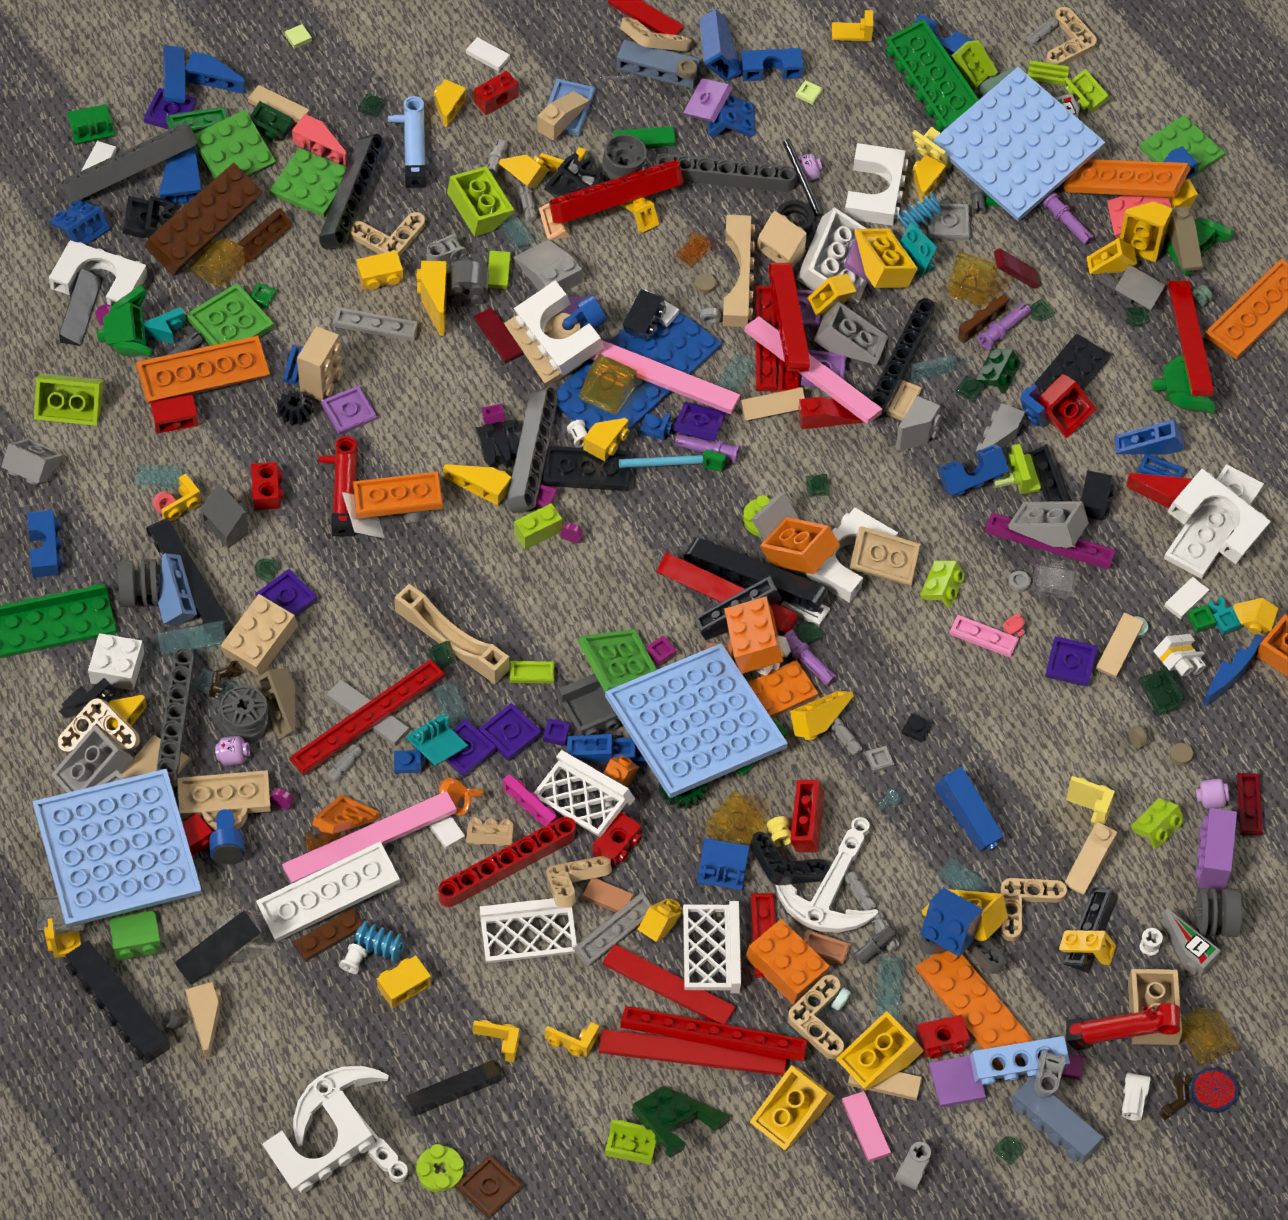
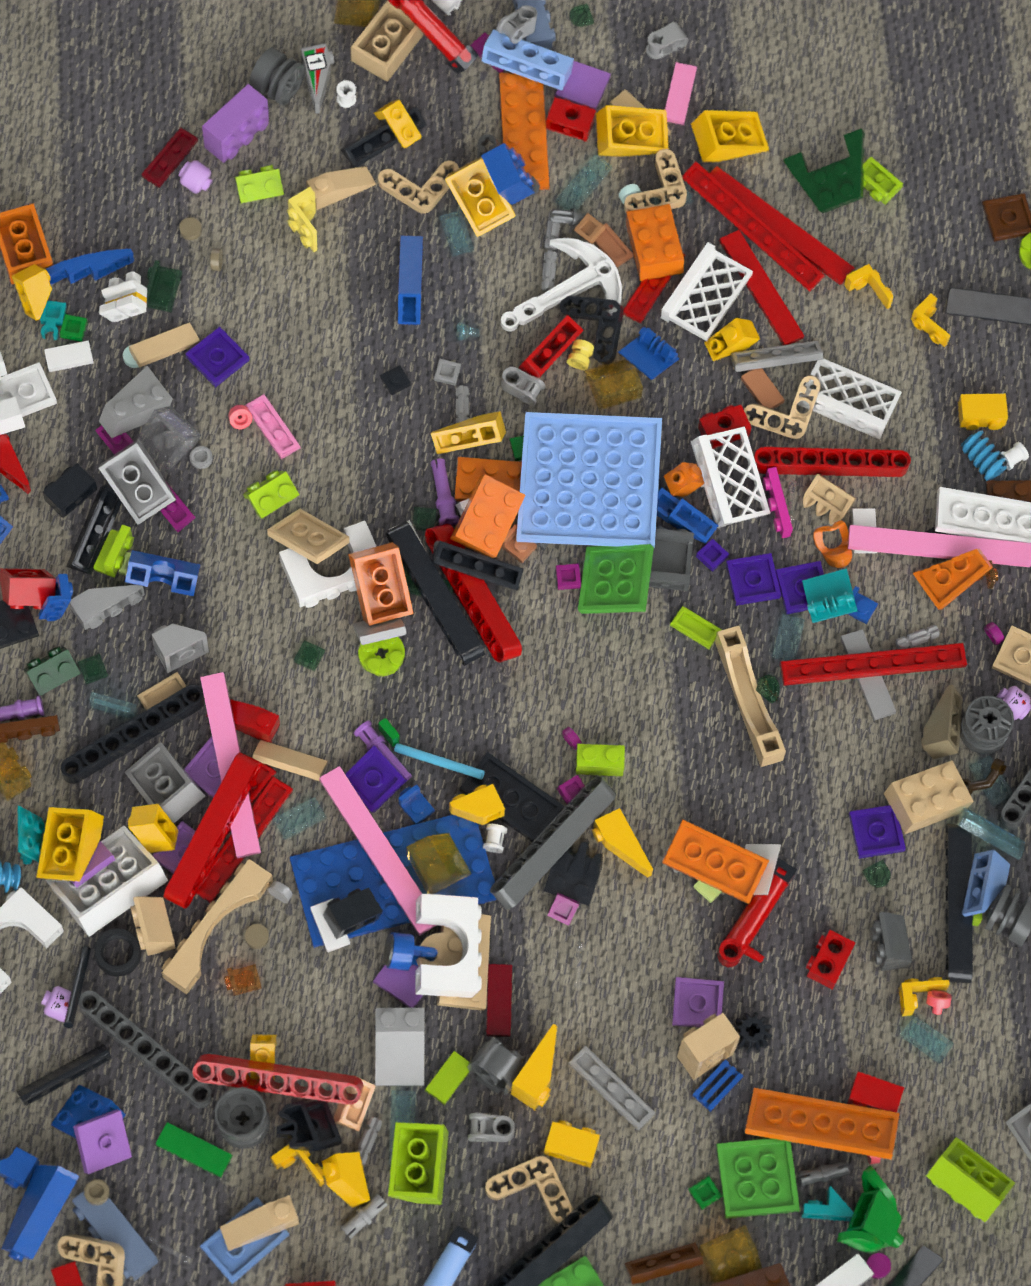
camera: 150 degrees left, 10 degrees up
(769, 131) = (64, 1074): none -> black slope
(810, 772) = (525, 388): none -> light grey piece
(851, 939) = (589, 228): none -> medium nougat plate
(1098, 579) = (134, 404): none -> light grey wedge

